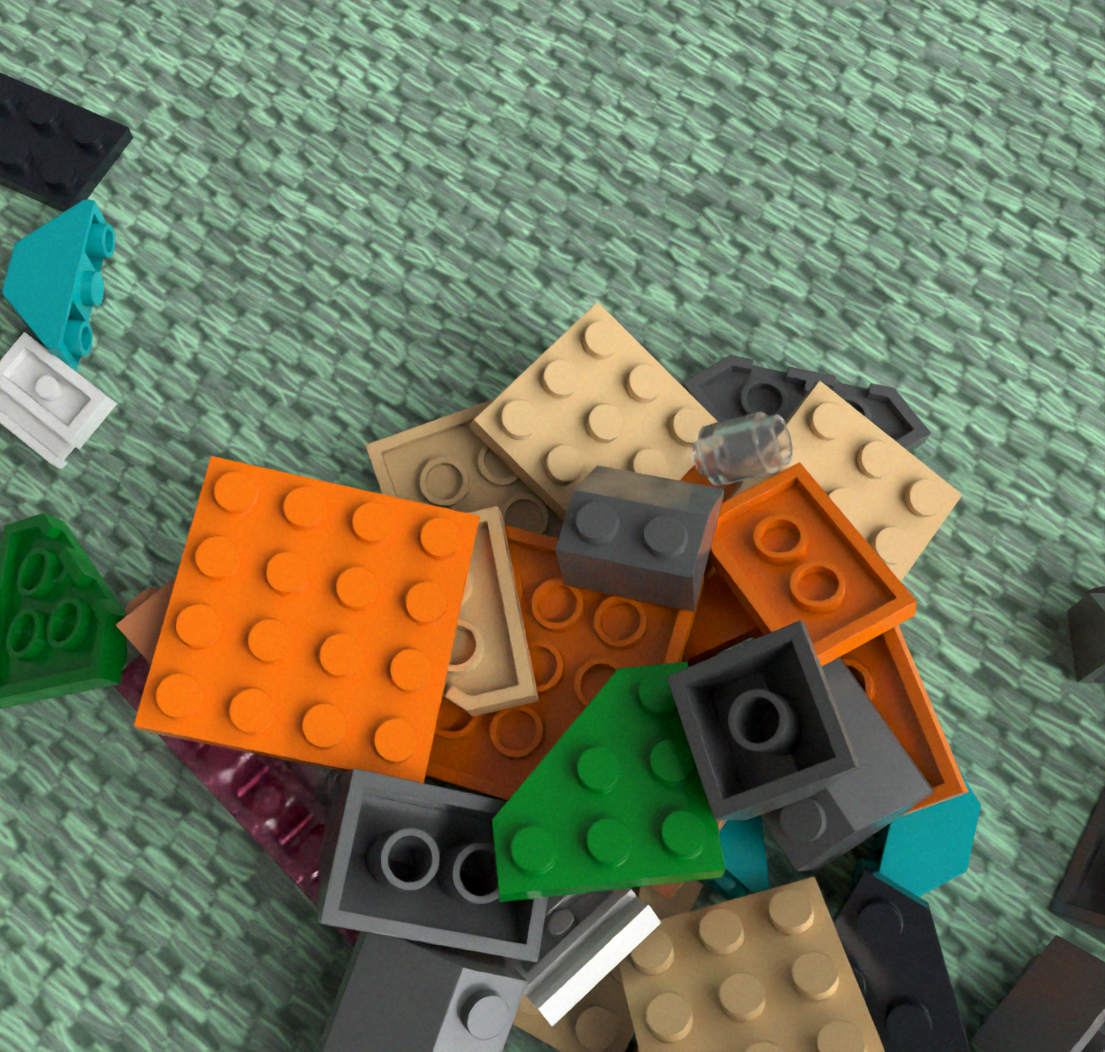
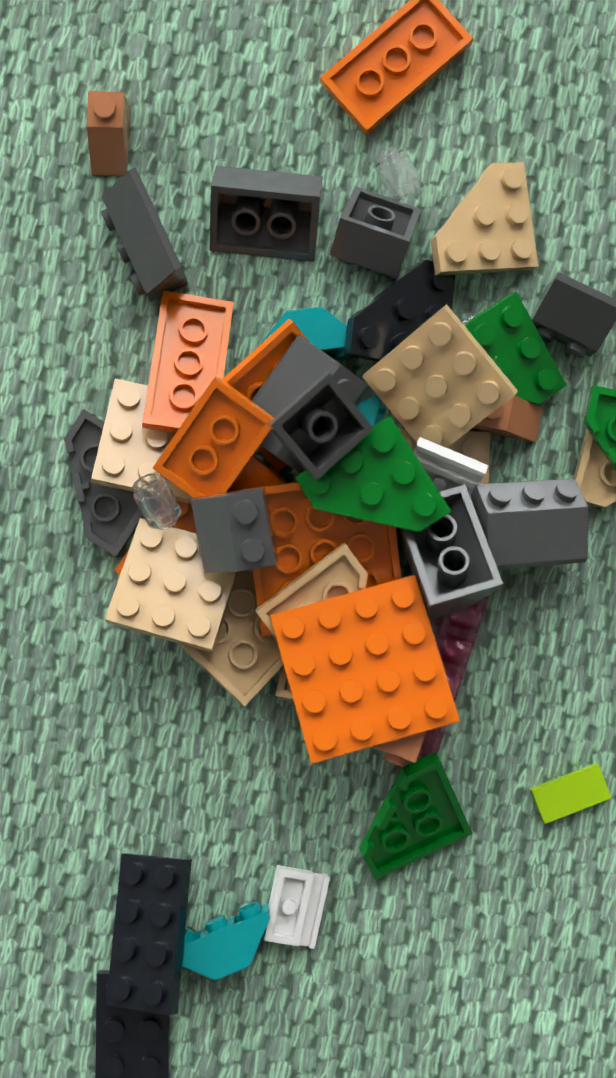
camera: 115 degrees left, 20 degrees up
(132, 195) = (149, 933): none -> black plate
(972, 619) = (186, 357): none -> plate

